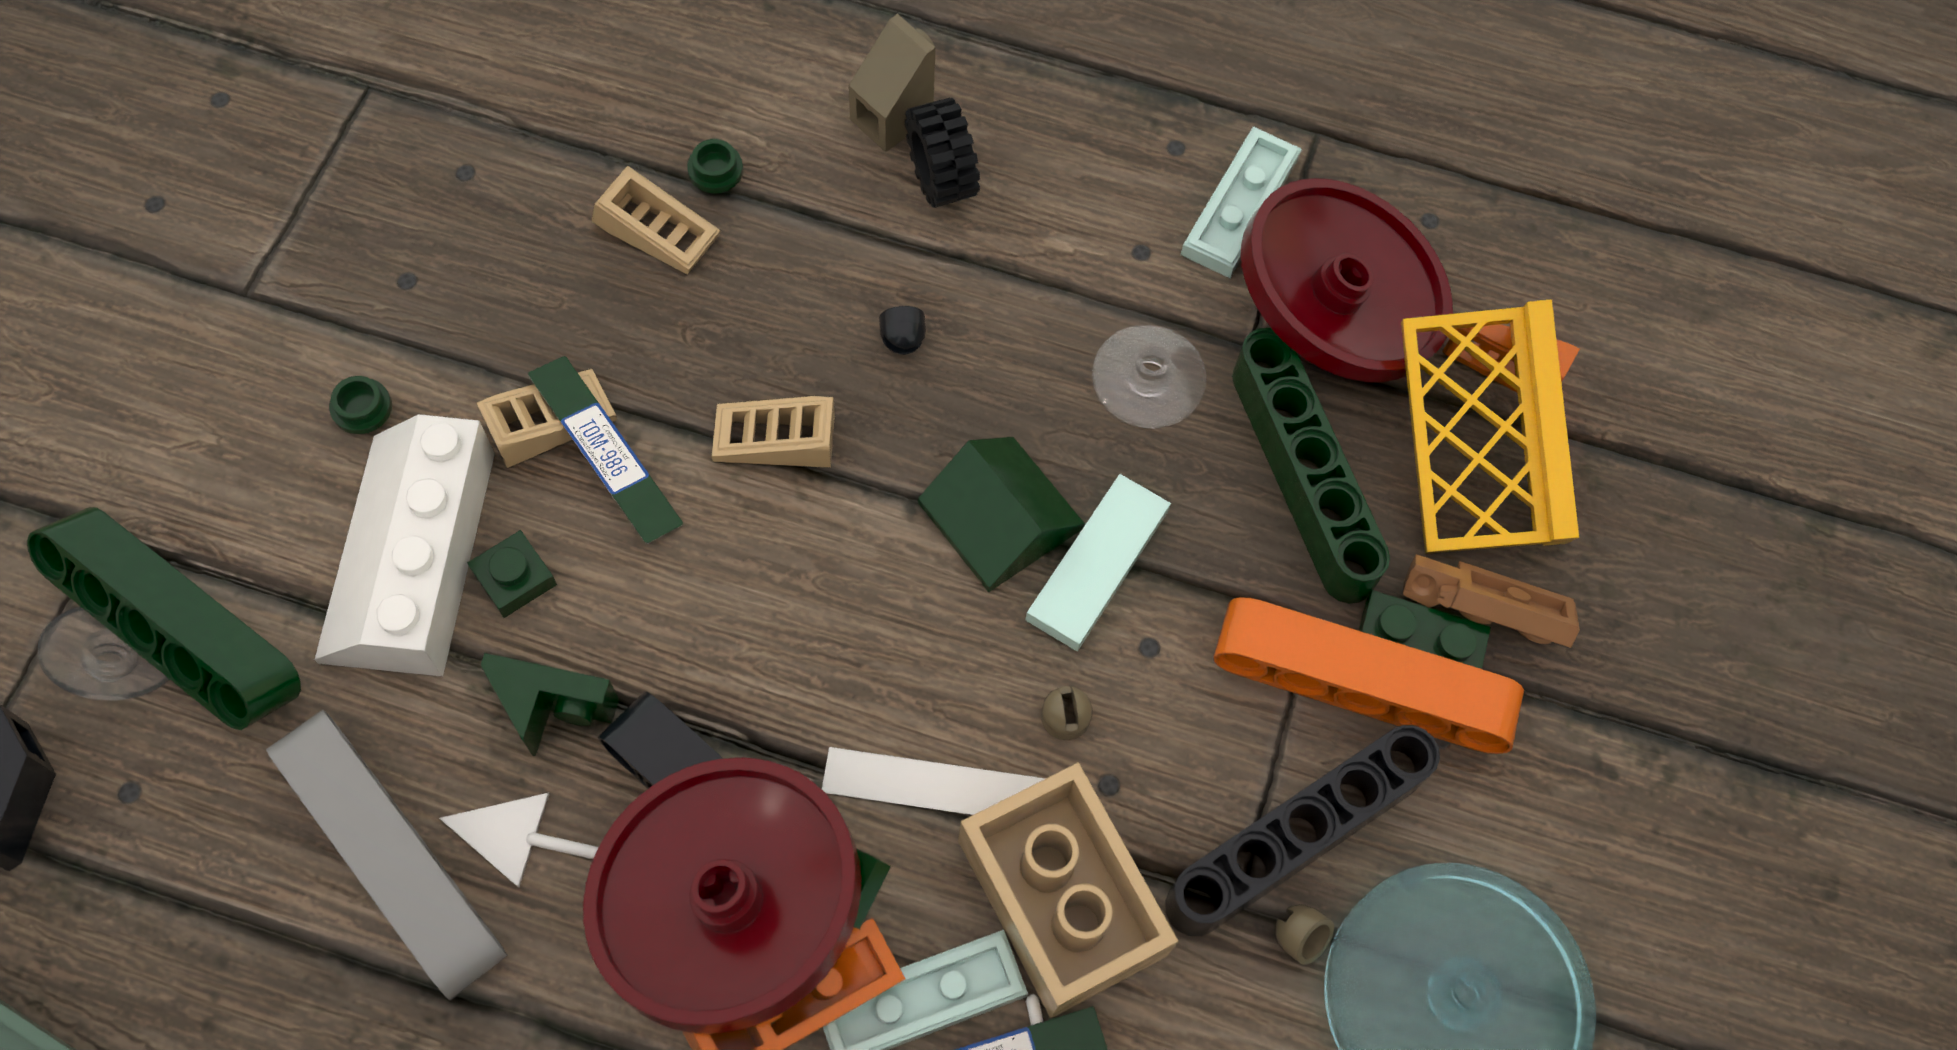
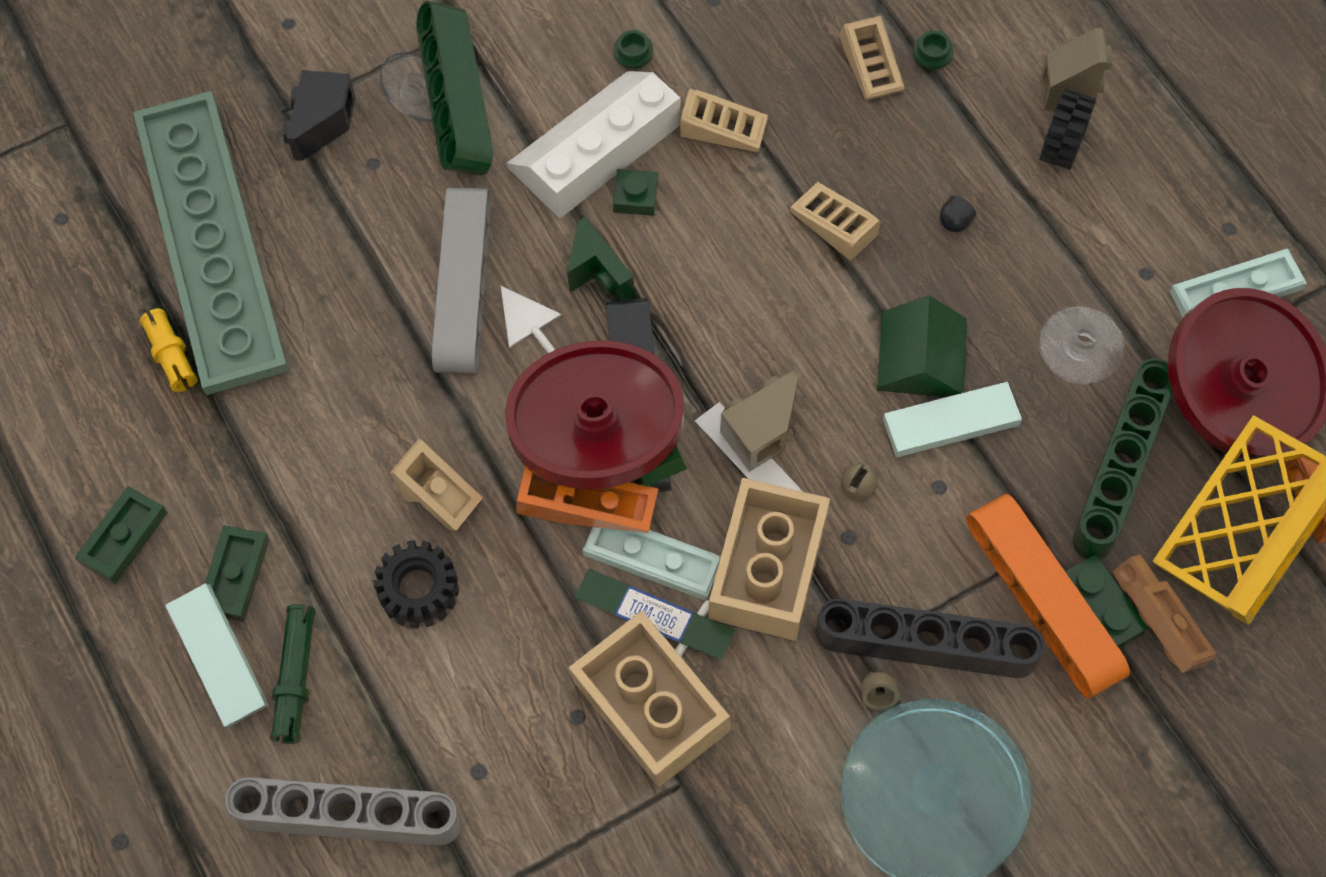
camera: 50 degrees right, 0 degrees up
(605, 449) = (737, 162): sticker -> none
(910, 731) = (761, 423): none -> dark tan slope

